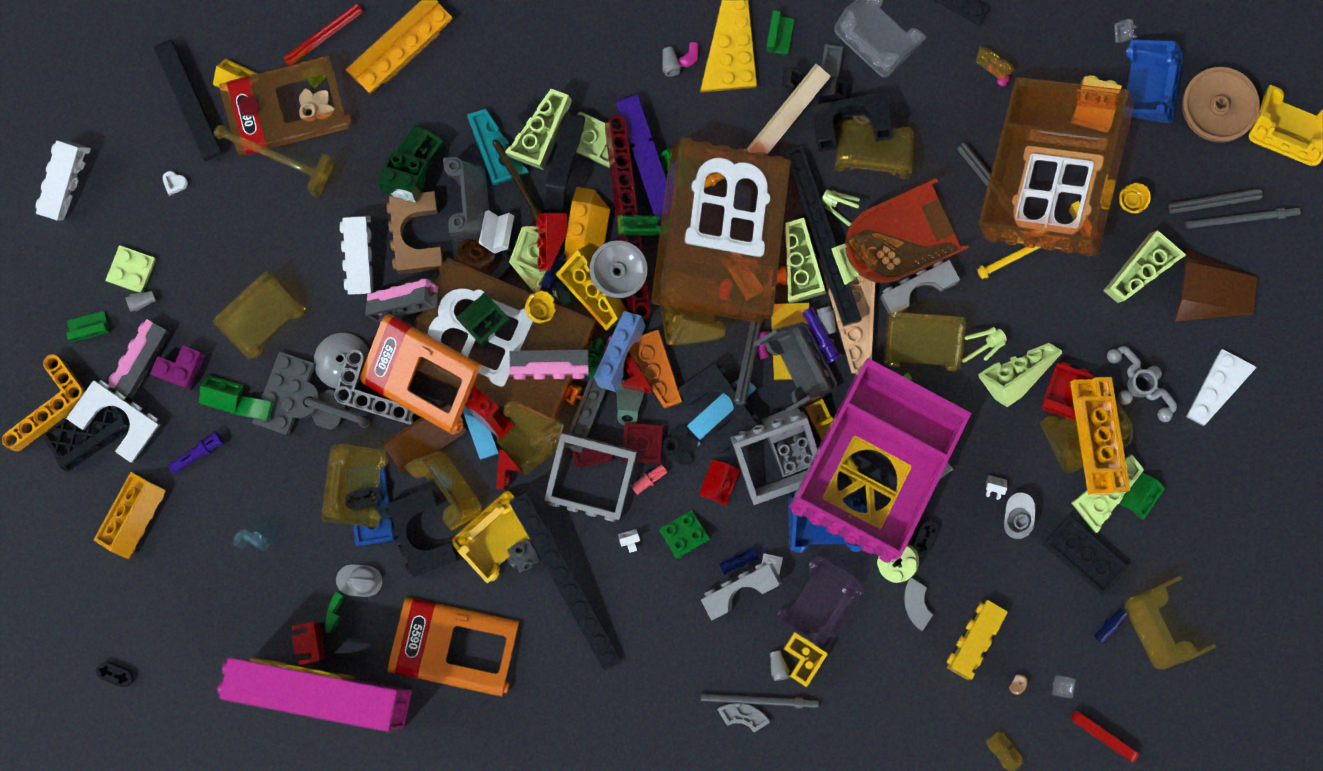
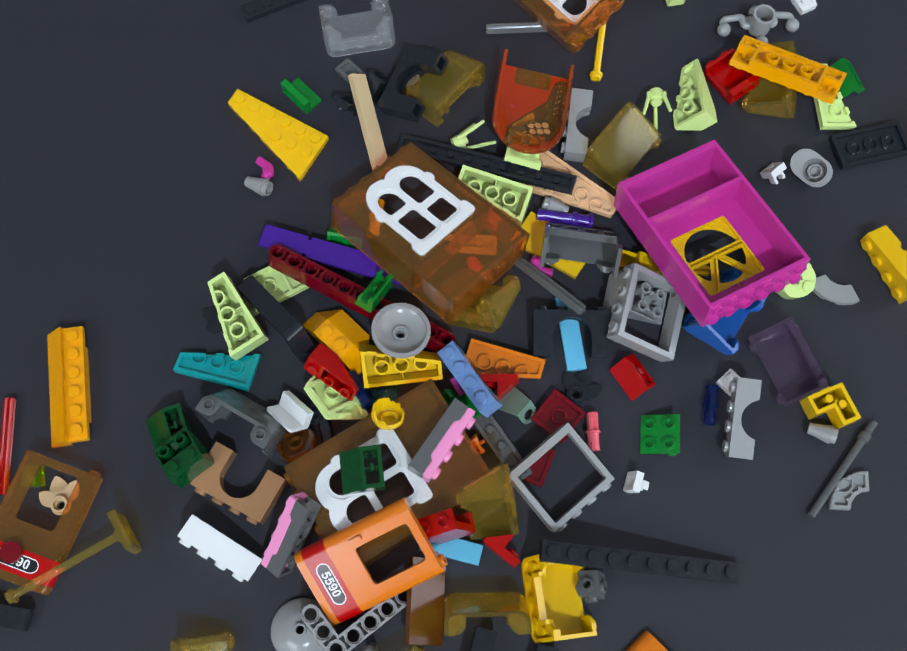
camera: 60 degrees left, 10 degrees down
(535, 210) = (298, 370): dark brown piece -> none

